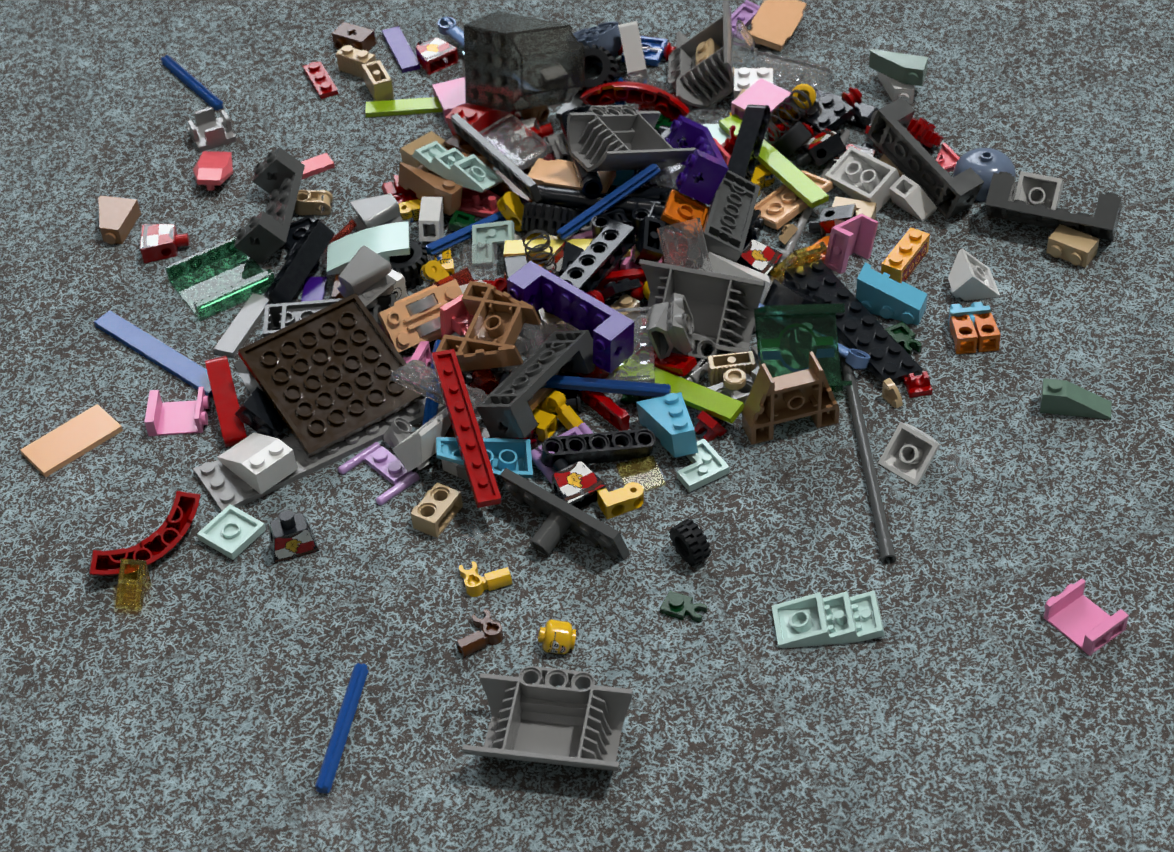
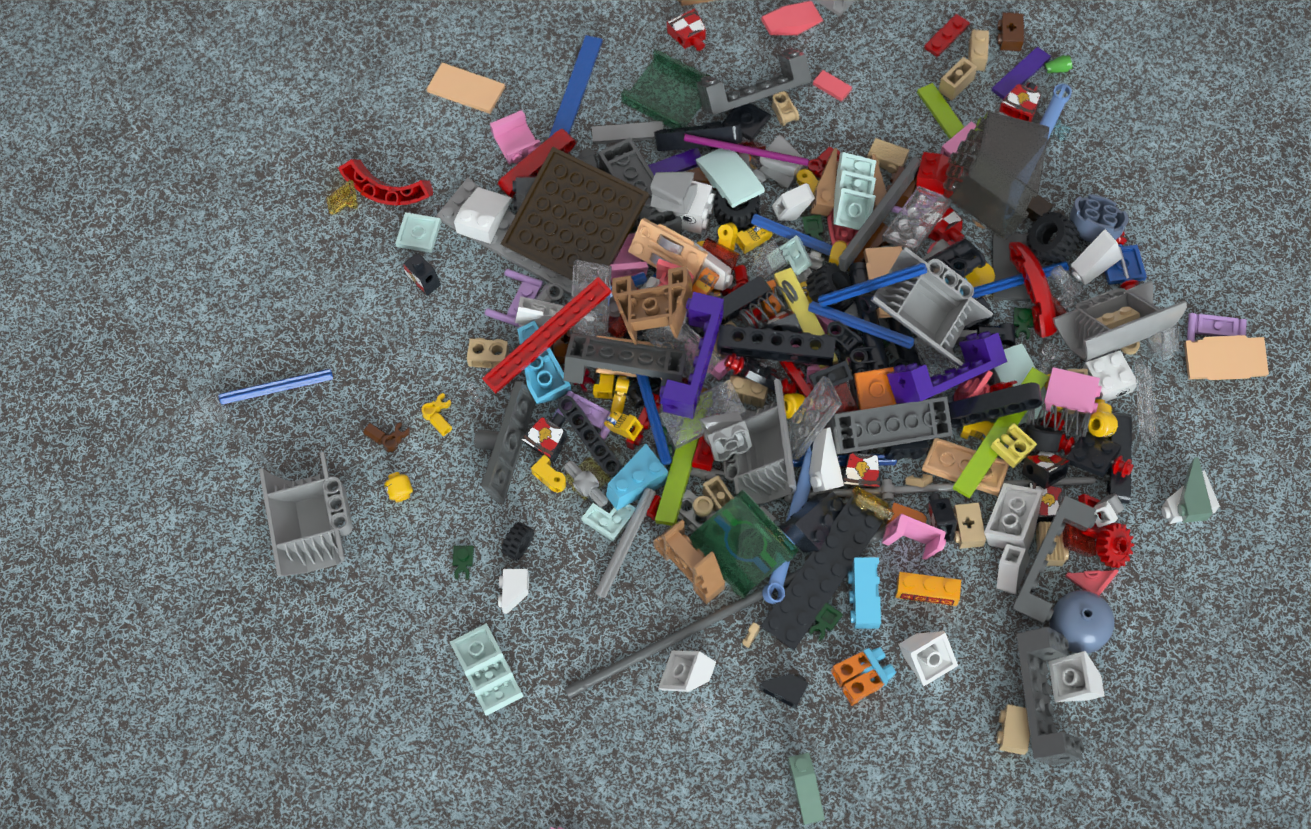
camera: 65 degrees right, 20 degrees up
(348, 227) = (747, 150): none -> magenta piece
(412, 23) = (1058, 65): none -> bright green cone
(582, 164) = (872, 284): none -> blue axle
(603, 412) = (622, 423): none -> yellow leg
(651, 469) = (586, 484): none -> light grey axle
(739, 561) = (514, 588): none -> white slope
(740, 457) = (625, 543): none -> light grey axle
(795, 150) = (1022, 442): none -> light yellow brick
(918, 385) = (774, 652): red tile -> none
(965, 384) = (786, 689): none -> black slope

